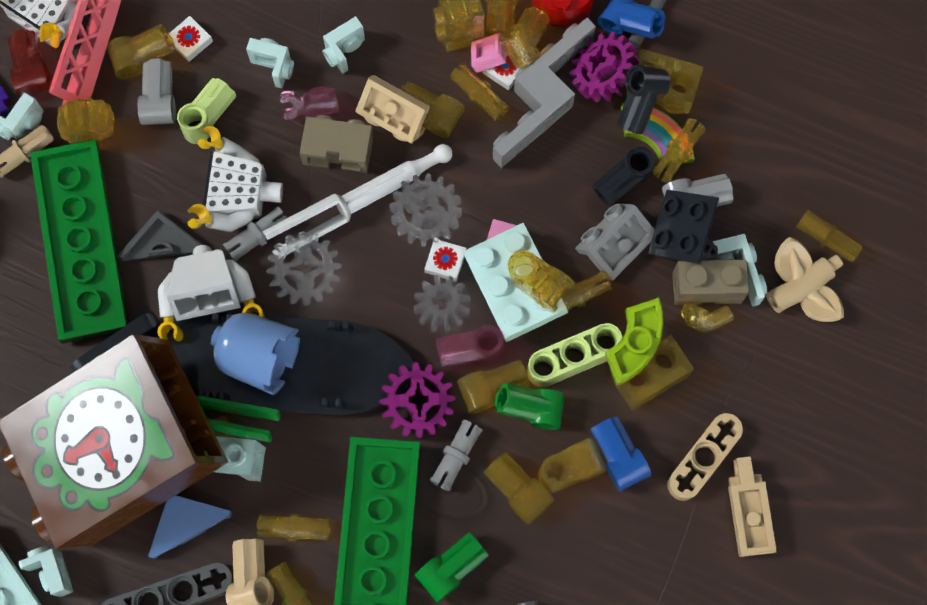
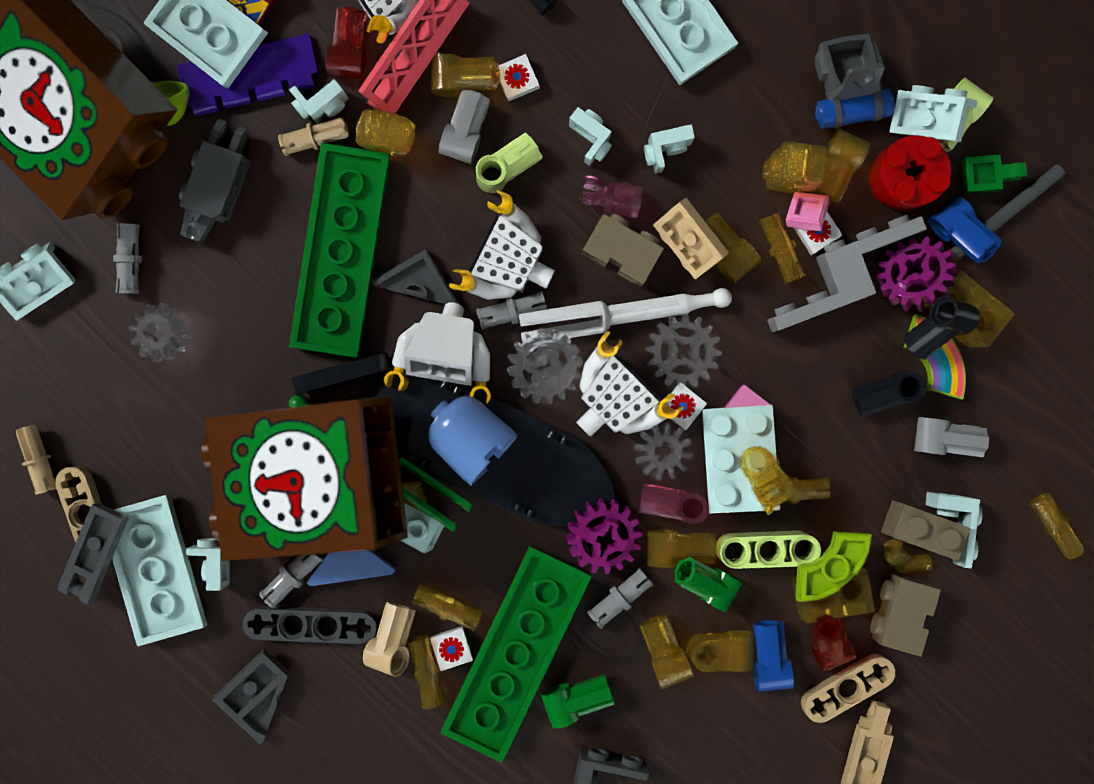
camera: 20 degrees right, 15 degrees up
(131, 556) = (290, 577): none -> light grey pin
(312, 566) = (451, 648): none -> white tile
(380, 268) = (619, 395): none -> white torso
(522, 39) = (847, 213): clear yellow piece -> none
(616, 239) = (854, 451): light grey bracket -> none
(670, 418) = (831, 643): none -> clear red piece
(679, 150) = (953, 389): clear yellow pin -> none
(685, 227) = (926, 473): black hinge -> none
(723, 363) = (904, 613): none -> dark tan brick
(806, 283) = (1014, 564): tan plant -> none

